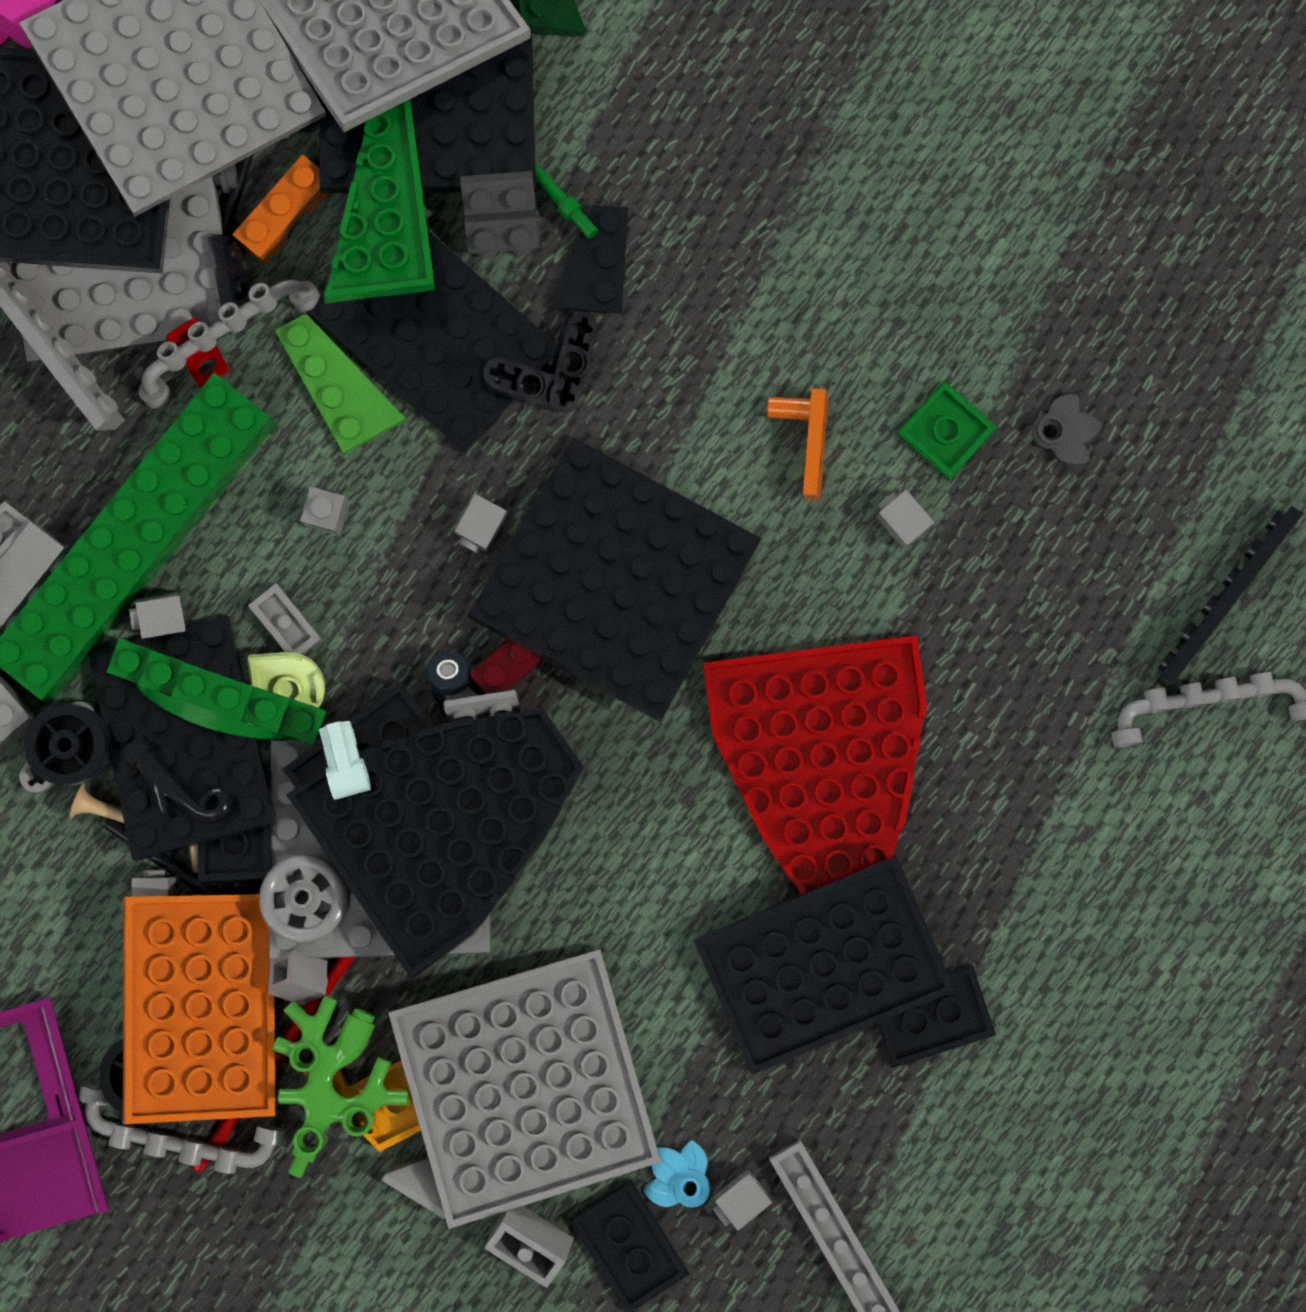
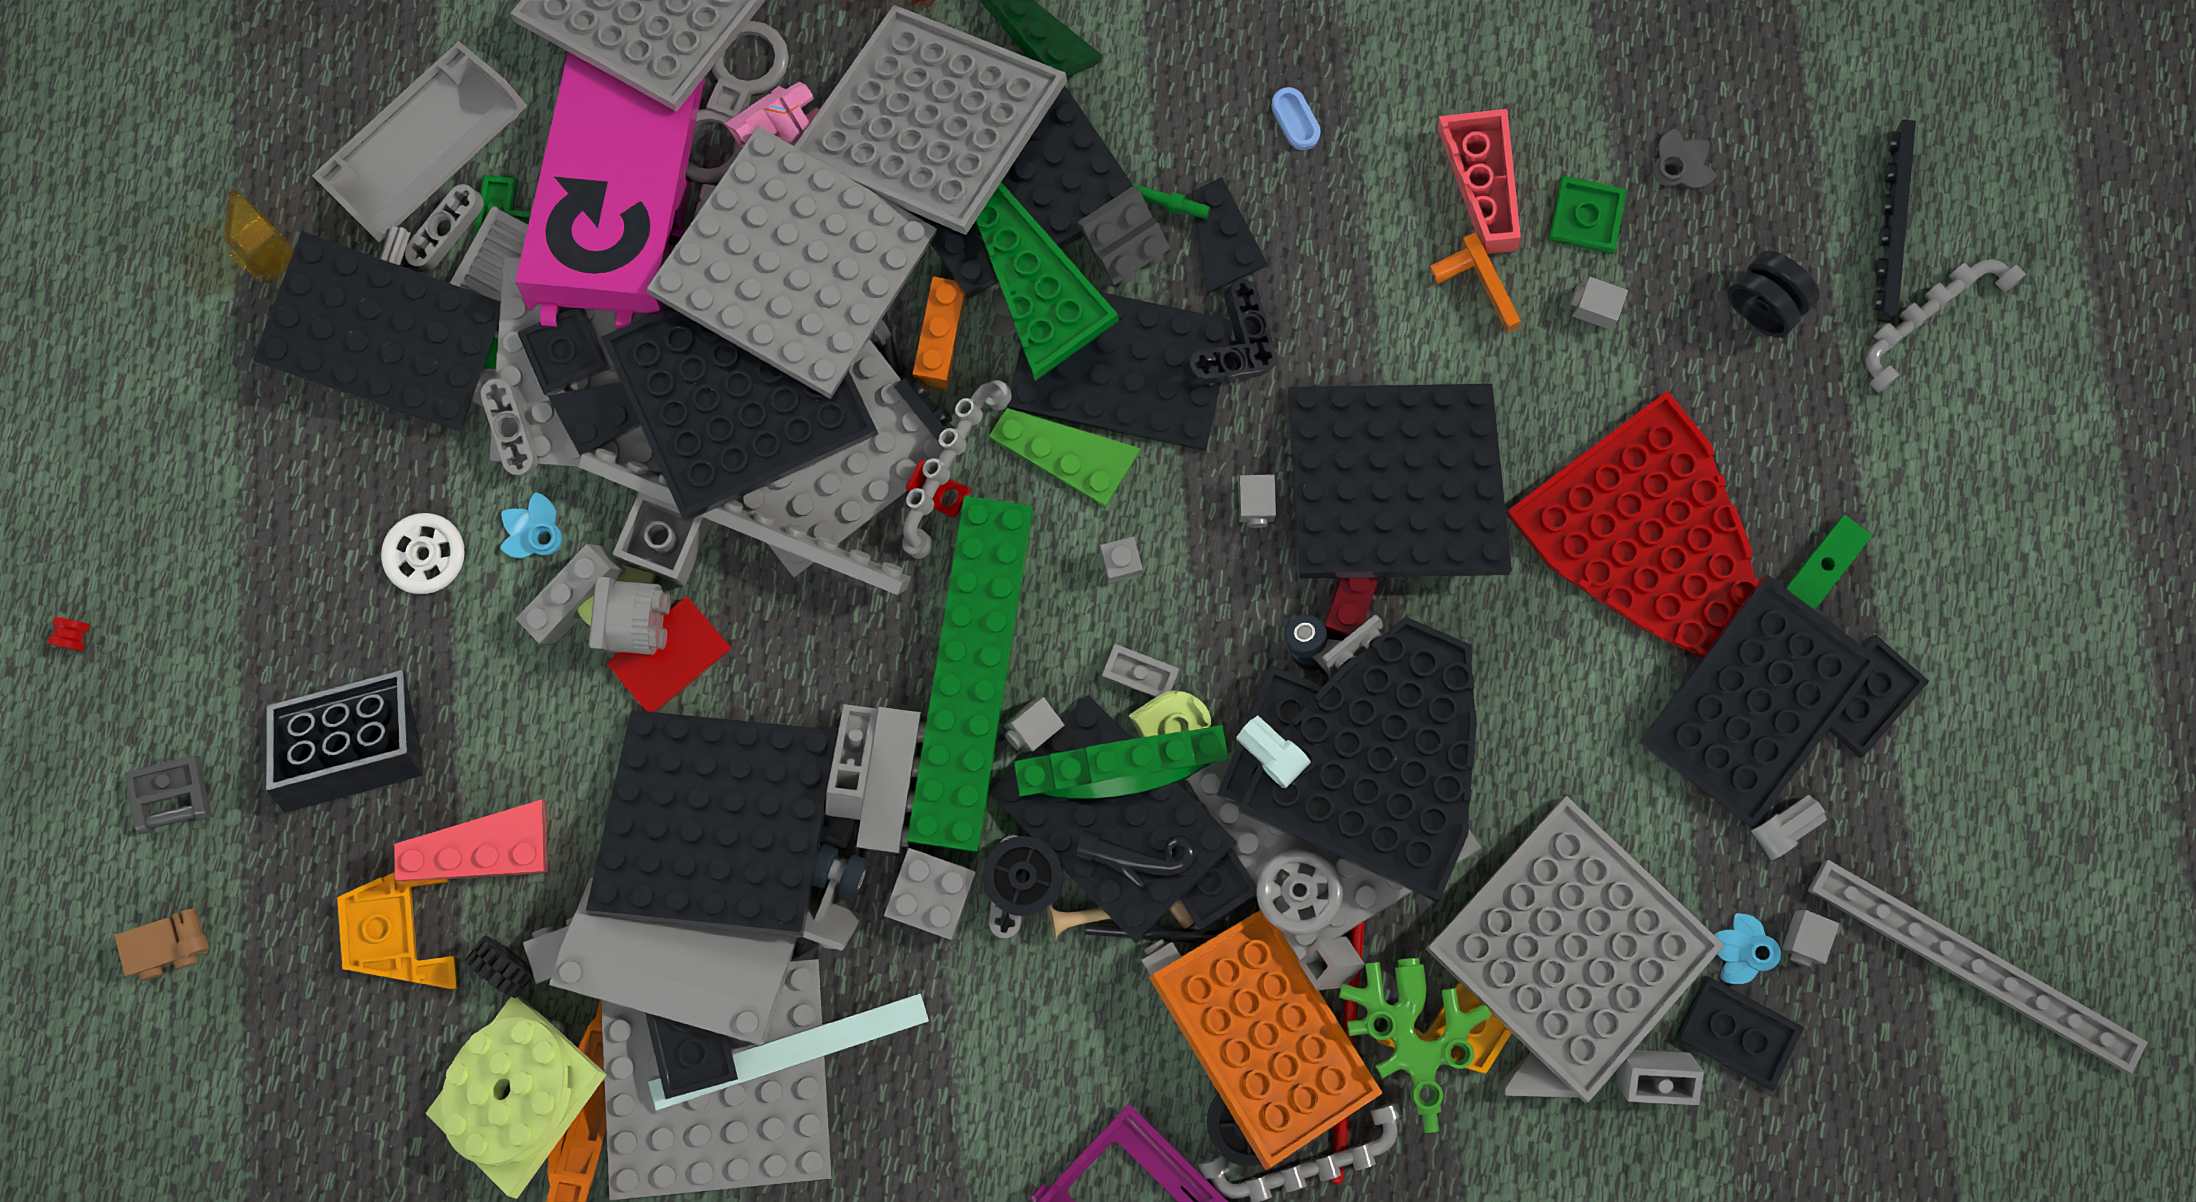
camera: 30 degrees left, 5 degrees down
(730, 189) = (1295, 118): none -> light blue tile
(779, 1091) = (1784, 829): none -> light grey piece
(879, 317) = (1485, 174): none -> coral wedge
(986, 869) = (1838, 550): none -> green tile
(1066, 601) = (1773, 294): none -> black wheel

